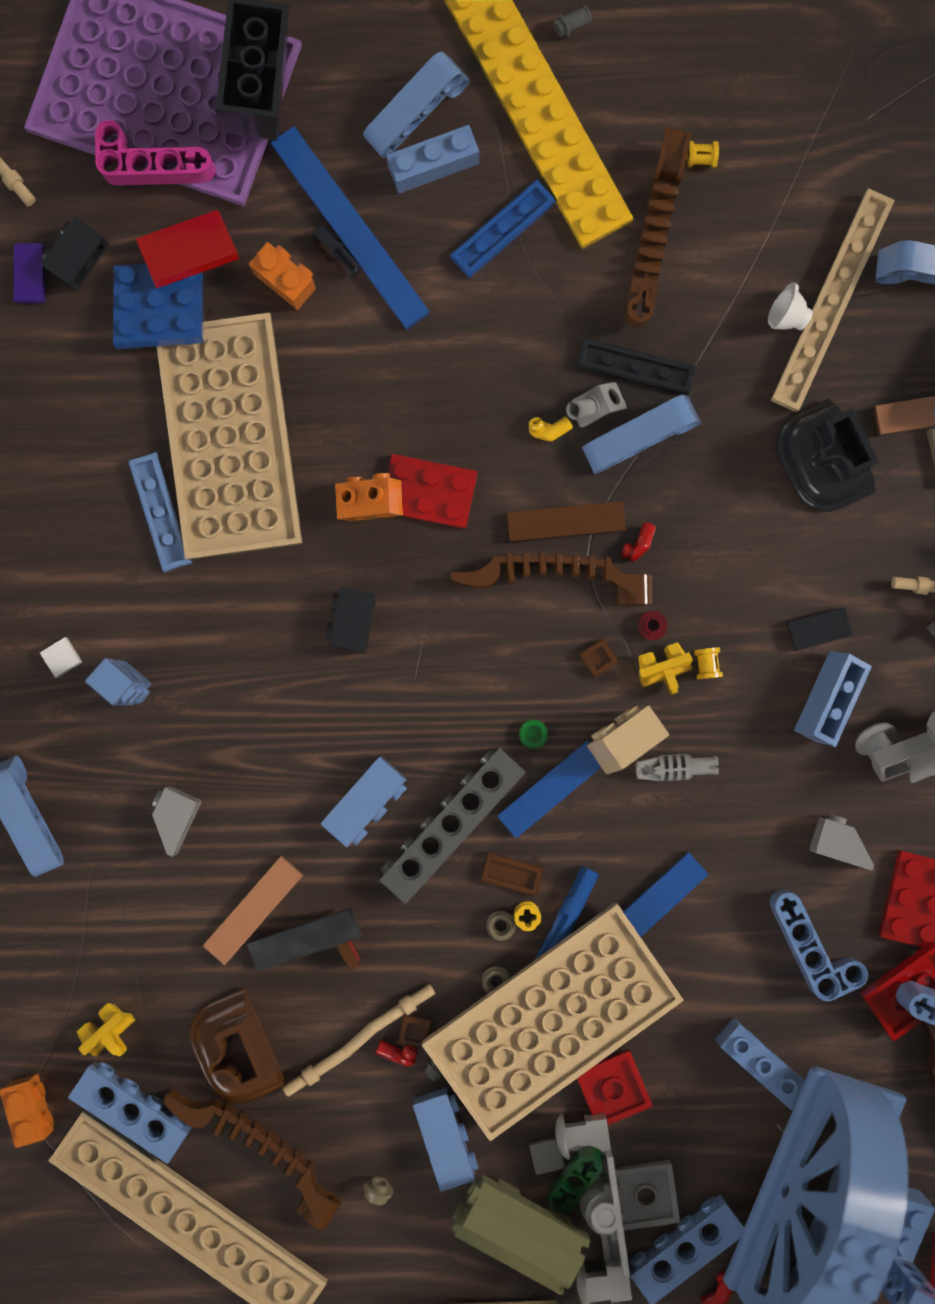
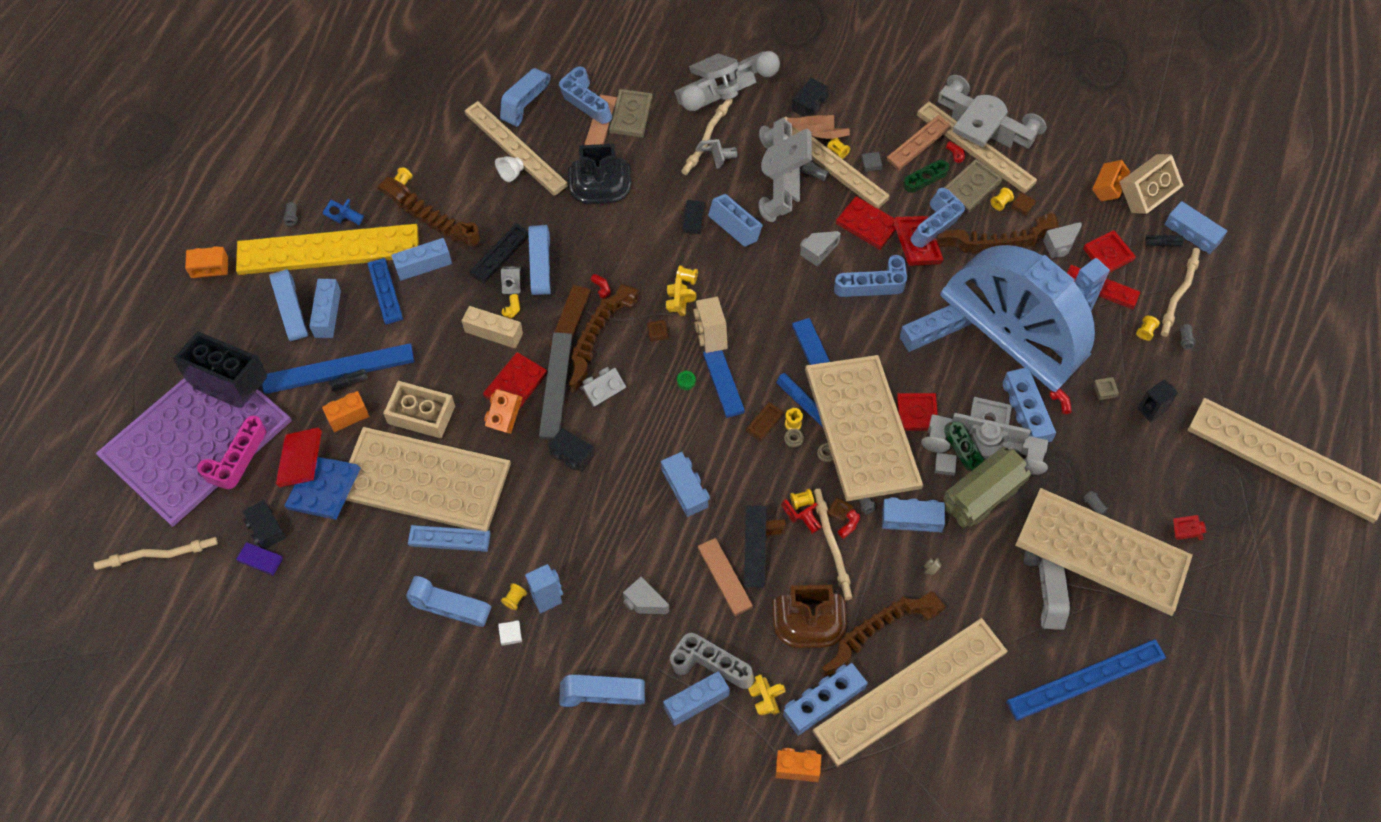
camera: 70 degrees left, 25 degrees down
(63, 557) = (445, 603): none -> medium blue beam
(63, 943) = (696, 698): none -> medium blue brick
(108, 640) = (513, 596): none -> yellow bush
(115, 949) = (714, 663): none -> light grey beam
(324, 378) = (419, 409): none -> tan brick
(384, 988) = (806, 515): none -> red bracket
(407, 885) = (703, 399): dark grey brick -> none
(416, 978) = (802, 499): none -> yellow bush
(445, 552) = (555, 385): none -> dark grey tile
(473, 618) = (602, 386): none -> light grey bracket
(501, 416) = (492, 327): none -> tan brick
(572, 257) = (421, 259): none -> medium blue brick
(607, 100) = (345, 212): none -> blue bracket
(643, 625) = (651, 300): dark red plate -> none
(675, 767) = (739, 312): light grey hinge -> none

